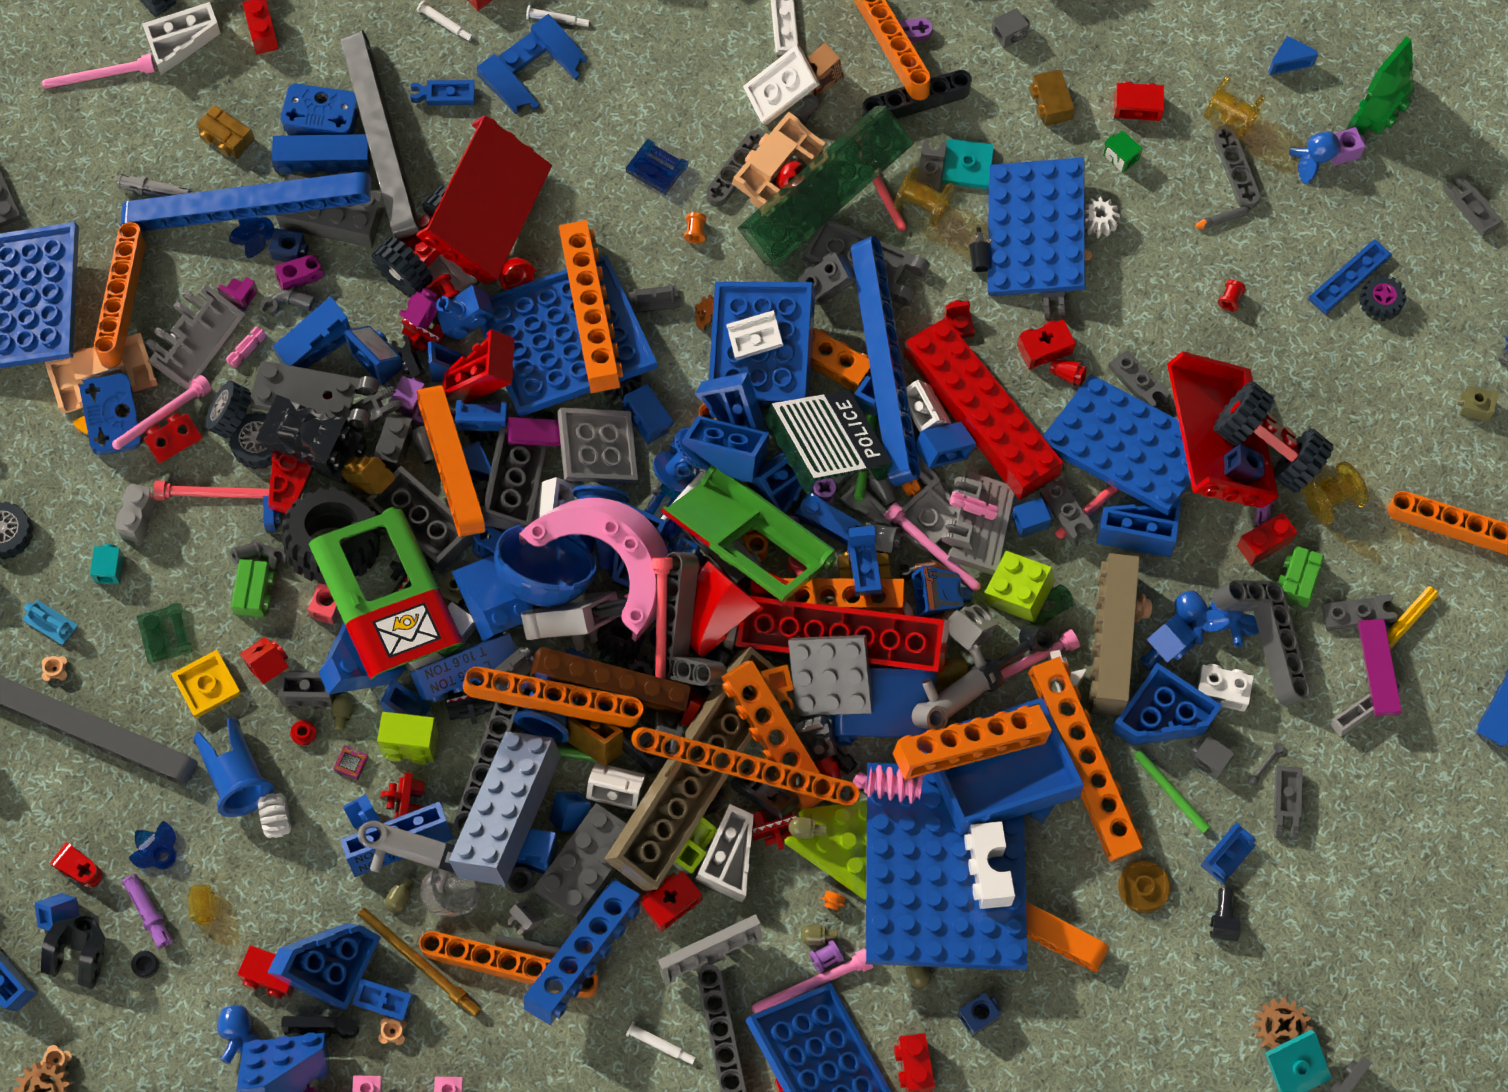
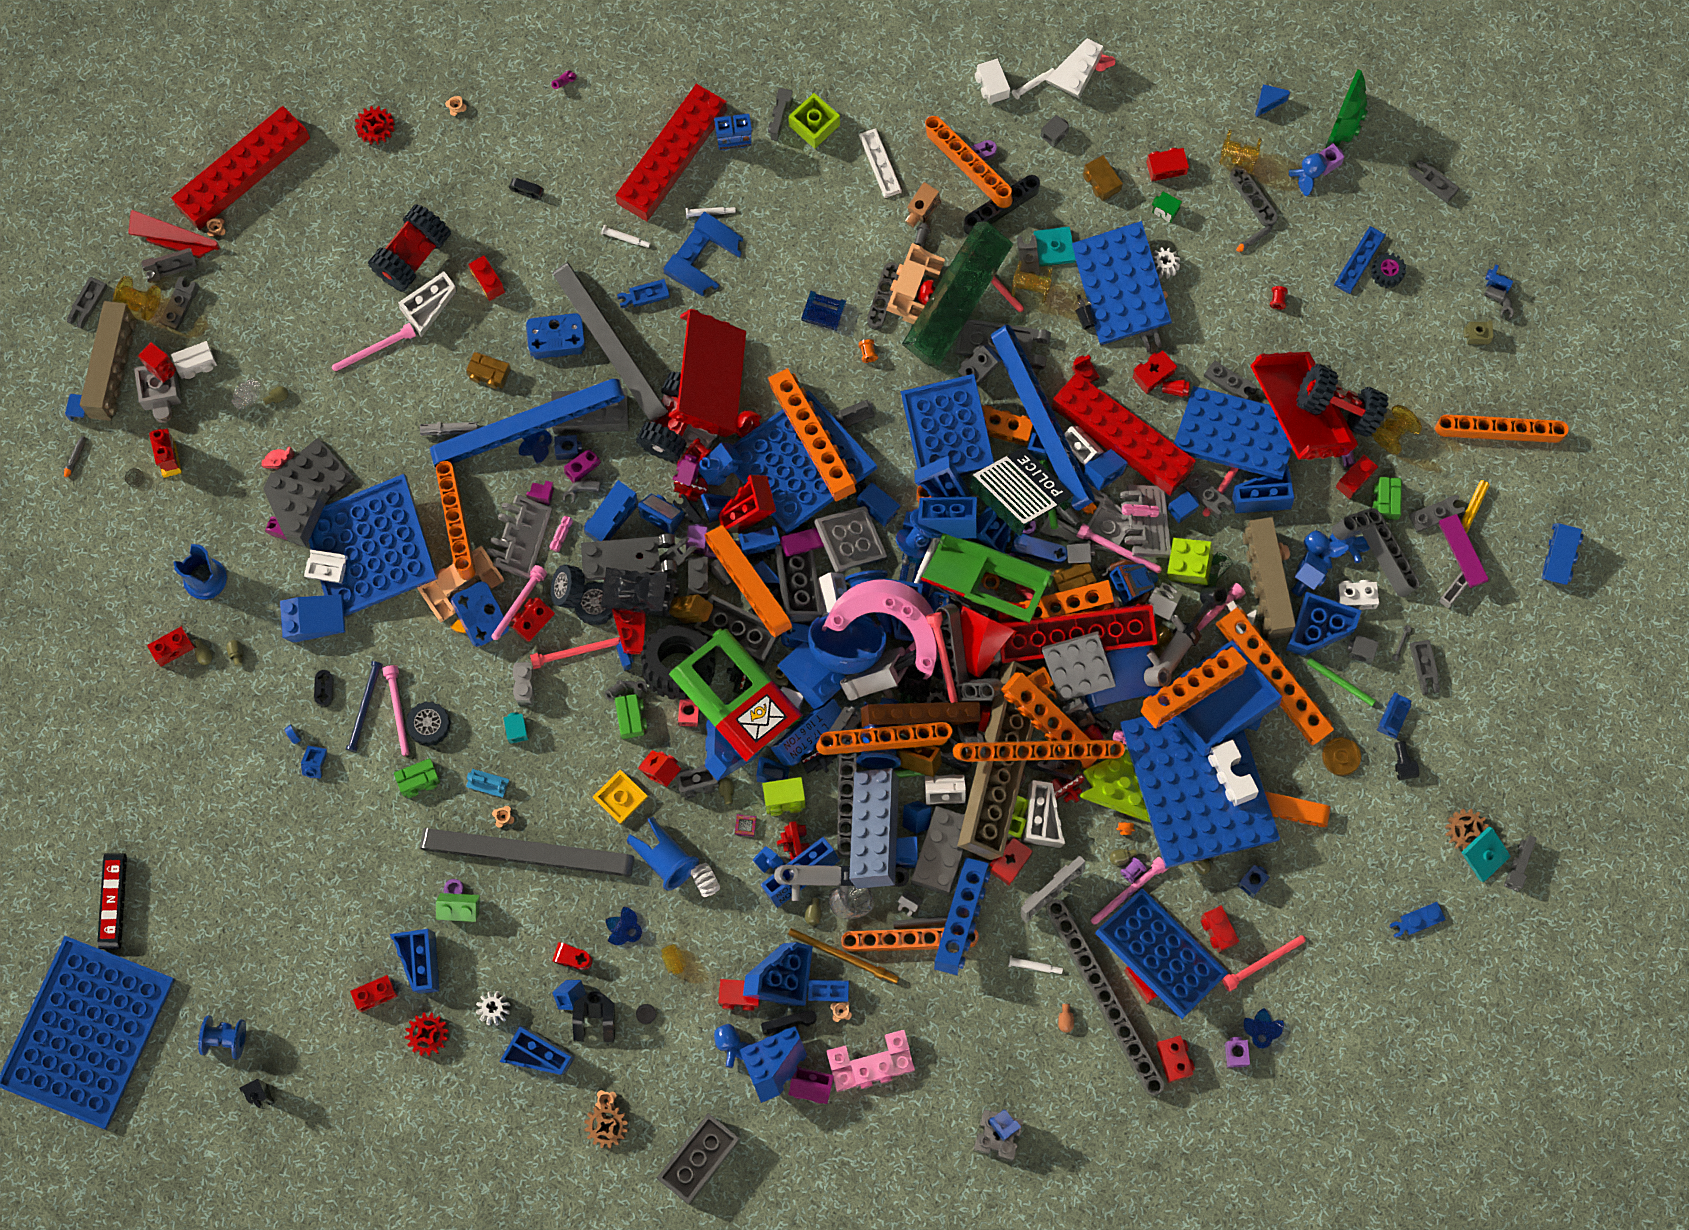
camera: 15 degrees left, 5 degrees up
(152, 920) = (642, 981): medium lavender pin -> none
(156, 637) = (569, 770): clear green plate -> none
(308, 737) = (703, 819): red plate -> none
(320, 153) = (567, 367): blue brick -> none
(704, 312) = (895, 414): reddish brown piece -> none
(755, 335) = (943, 425): white plate -> none
(781, 85) = (898, 222): white tile -> none
(805, 828) = (1094, 782): olive cylinder -> none
(864, 560) = (1076, 575): blue bracket -> none
(893, 785) = (1147, 733): bright pink piece -> none
(1244, 464) = (1327, 427): dark blue brick -> none

